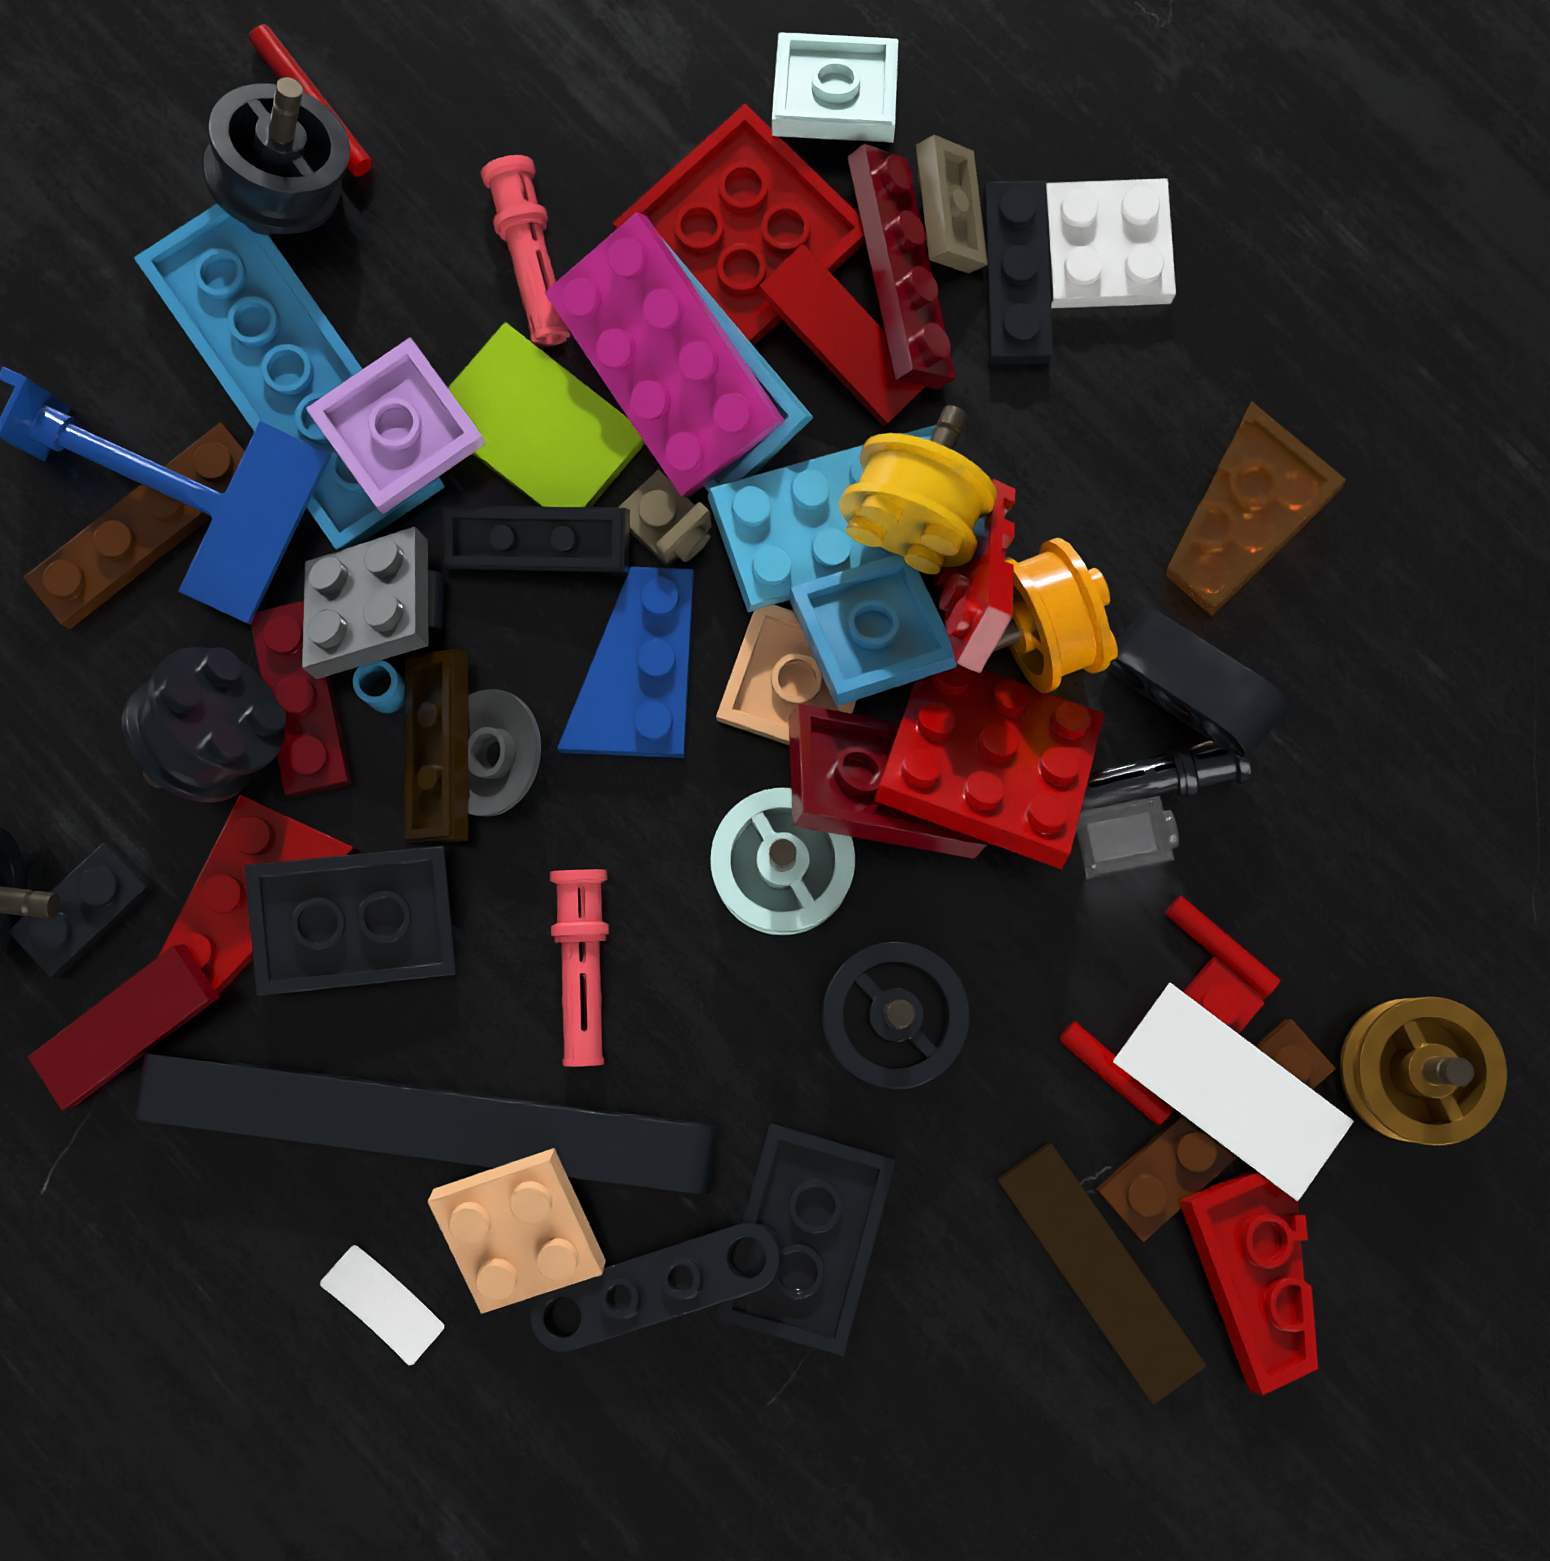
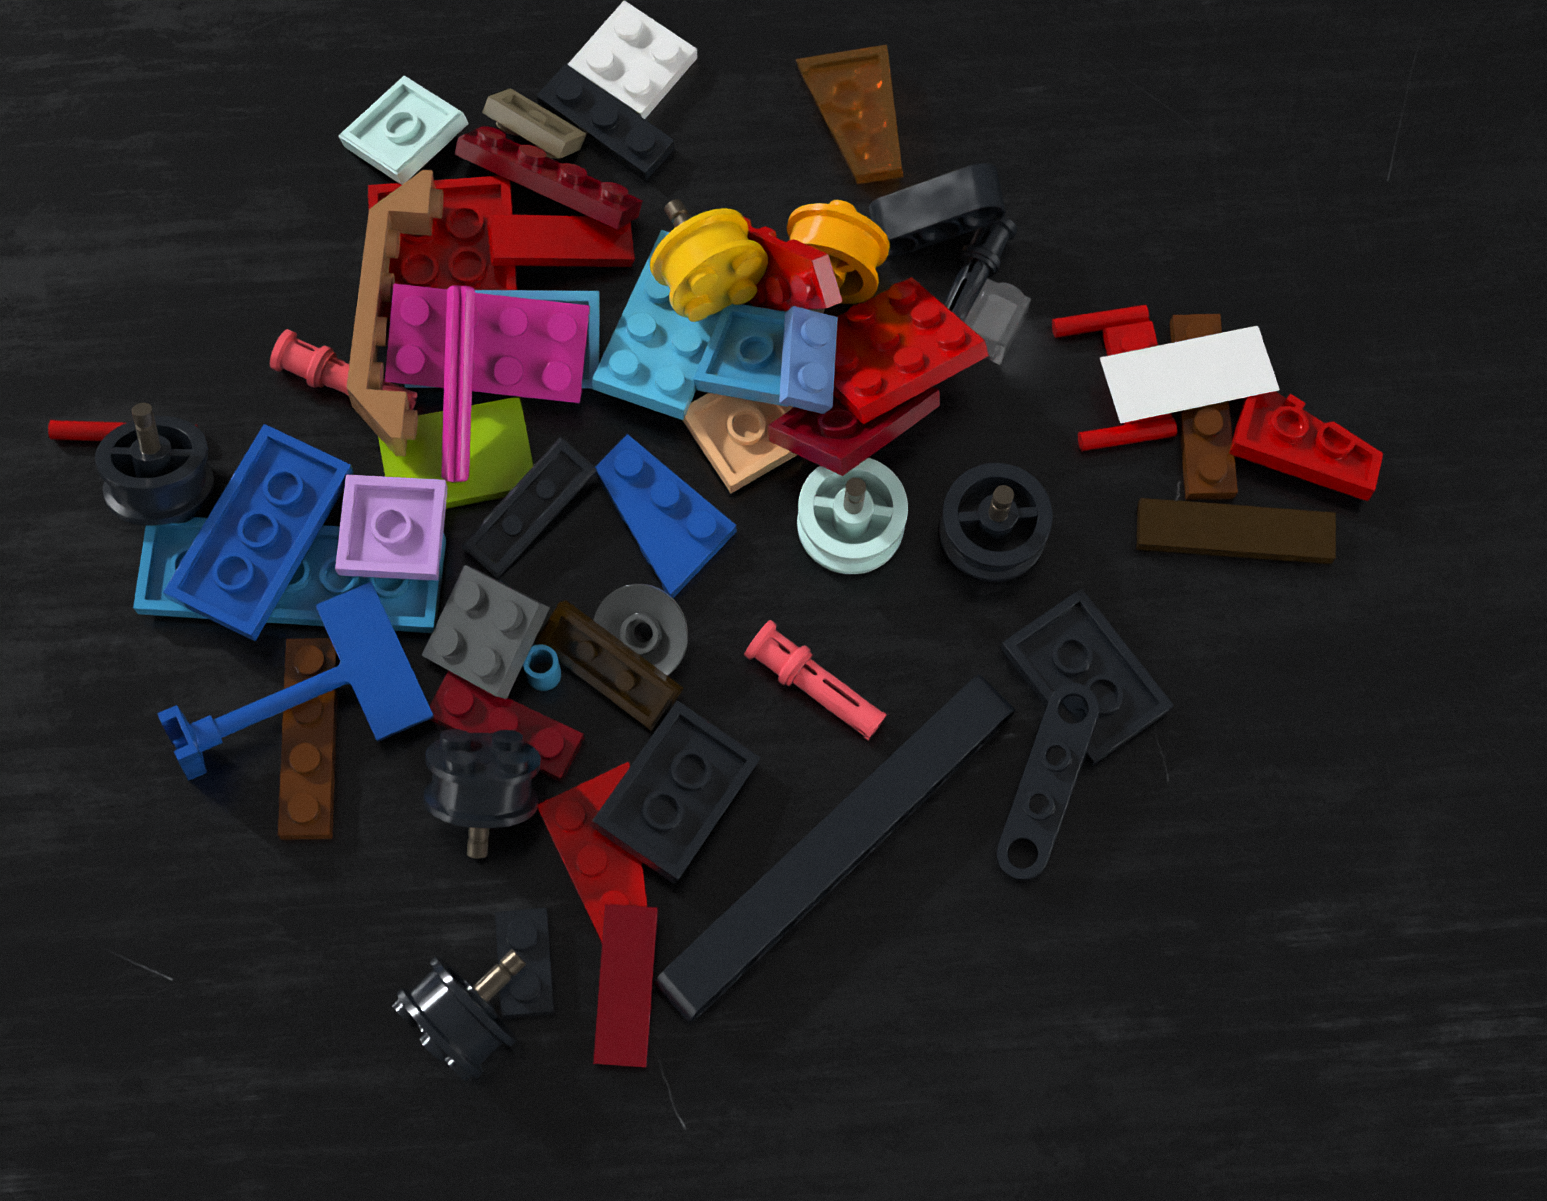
camera: 55 degrees left, 10 degrees down
(290, 306) = (258, 532): none -> blue plate
(383, 1304) = (928, 963): white sticker -> none
(517, 1231) = (950, 835): light nougat plate -> none
(591, 361) = (458, 383): none -> dark pink axle
(667, 522) = (585, 425): dark tan bracket -> none
(745, 160) = (403, 211): none -> medium nougat slope
(898, 687) = (808, 360): none -> medium blue plate
(1423, 1070) = (1257, 267): pearl gold wheel -> none

